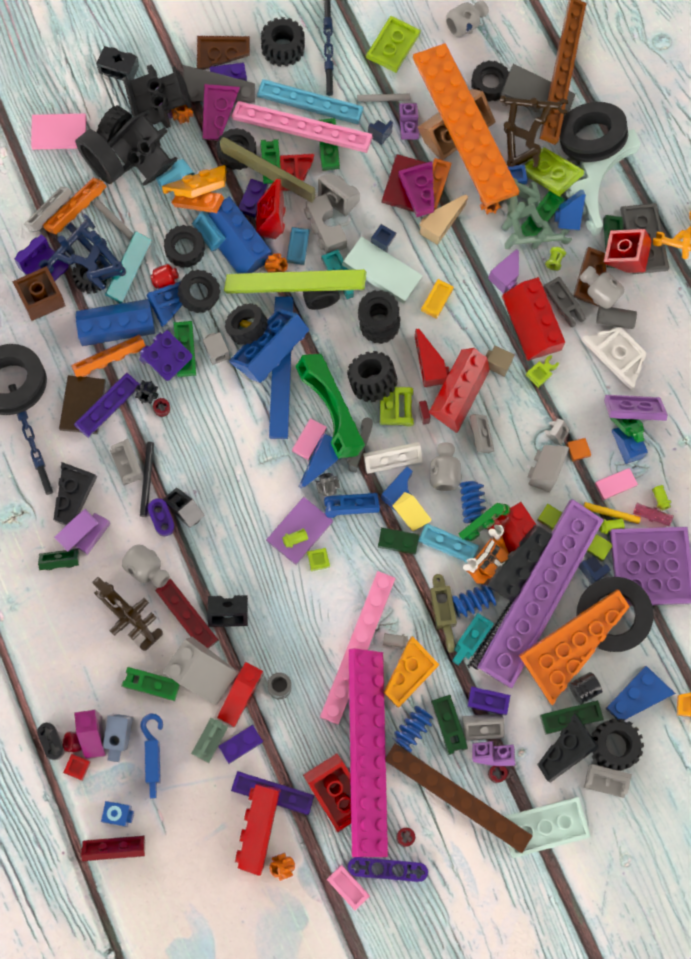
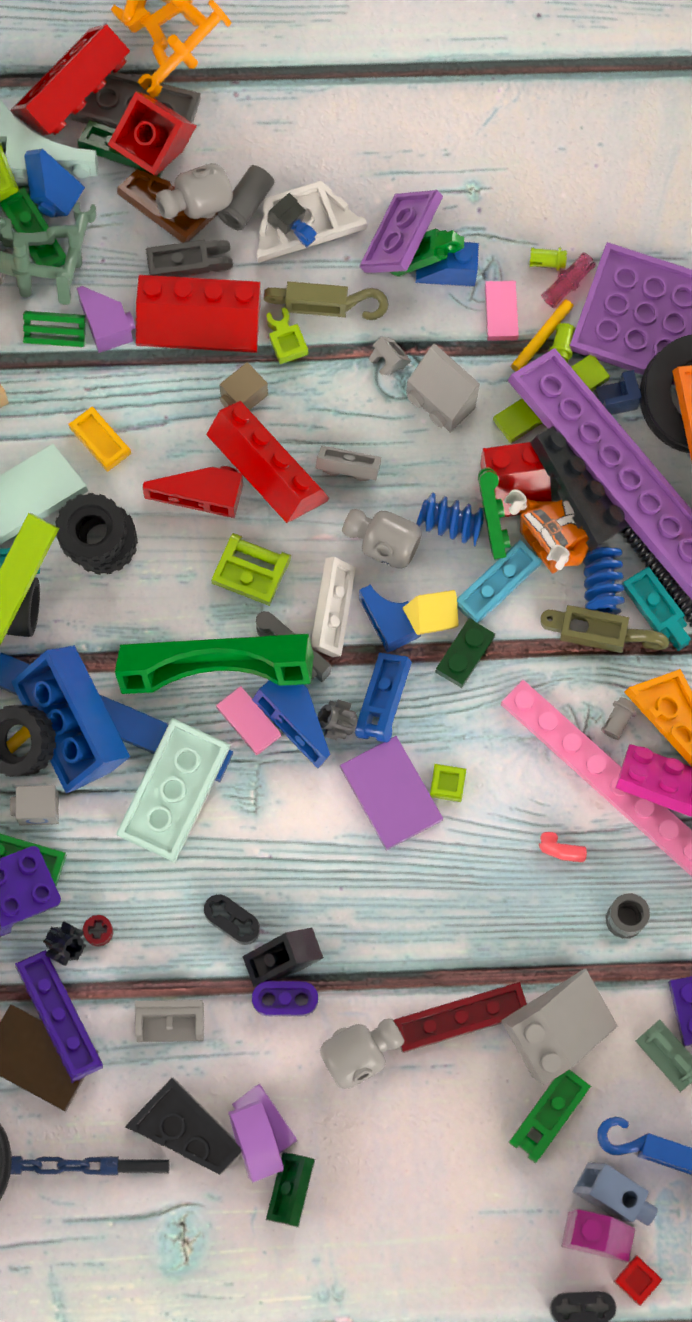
camera: 65 degrees left, 0 degrees up
(71, 742) = (597, 1273): dark red tile -> none
(127, 614) = (425, 1109): dark brown piece -> none
(146, 479) = (210, 999): black bar -> none
(198, 474) = (227, 926): none -> black beam
(220, 607) = (485, 964): black brick -> none
(240, 694) = (617, 980): red slope -> none
(253, 414) = (173, 790): none -> light aqua tile
(294, 538) = (405, 802): lime pin -> none
(303, 638) = (561, 851): none -> coral arm
(376, 387) = (170, 579): black tyre -> none
(424, 412) = (279, 531): dark red tile -> none
(486, 250) = (50, 339): none -> green tile
(555, 258) = (113, 241): lime bush -> none
(575, 384) = (324, 299): none -> olive piece
(579, 449) = (425, 336): orange tile -> none
(613, 343) = (288, 216): none -> pearl dark grey piece
(640, 197) = (72, 80): none -> red slope

